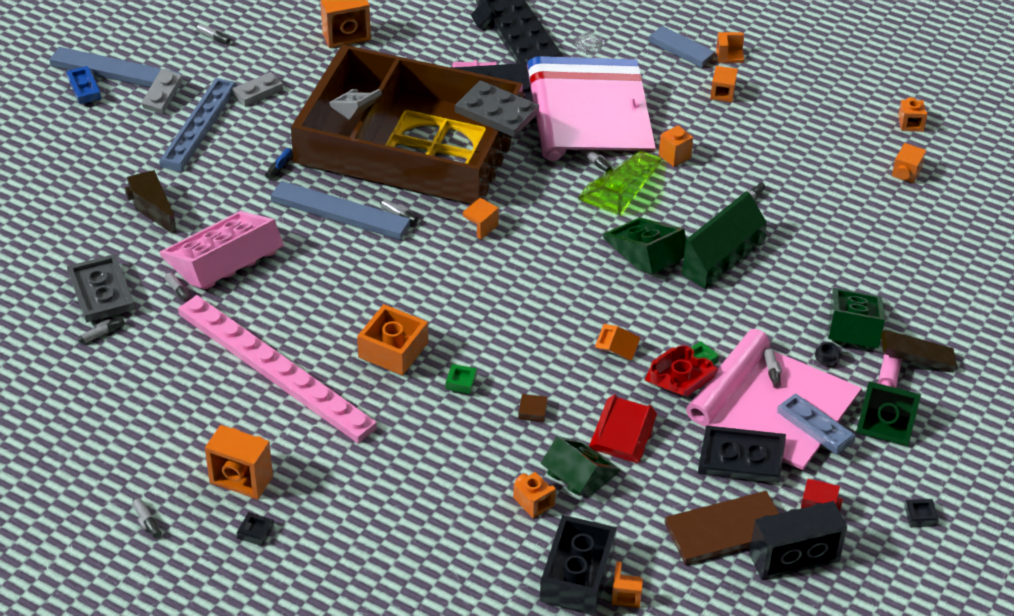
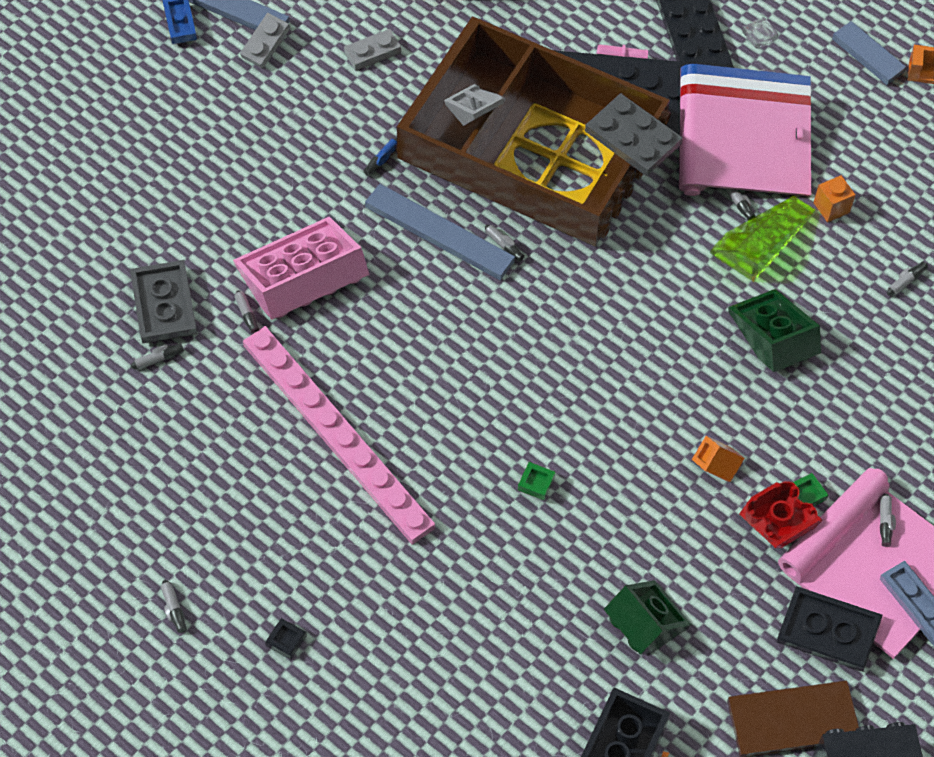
camera: 10 degrees right, 15 degrees up
(150, 199) = (231, 189): dark brown slope -> none
(197, 125) = (299, 90): sand blue tile -> none
(239, 461) = (279, 558): orange brick -> none
(392, 339) = (469, 421): orange brick -> none
(484, 215) = (595, 266): orange panel -> none
(533, 407) = (609, 529): reddish brown tile -> none
(534, 494) = (590, 653): orange brick -> none
(624, 429) = (703, 576): red slope -> none
(723, 83) = (907, 116): orange brick -> none
(724, 241) = (864, 344): dark green slope -> none
(820, 492) = (904, 704): red brick -> none

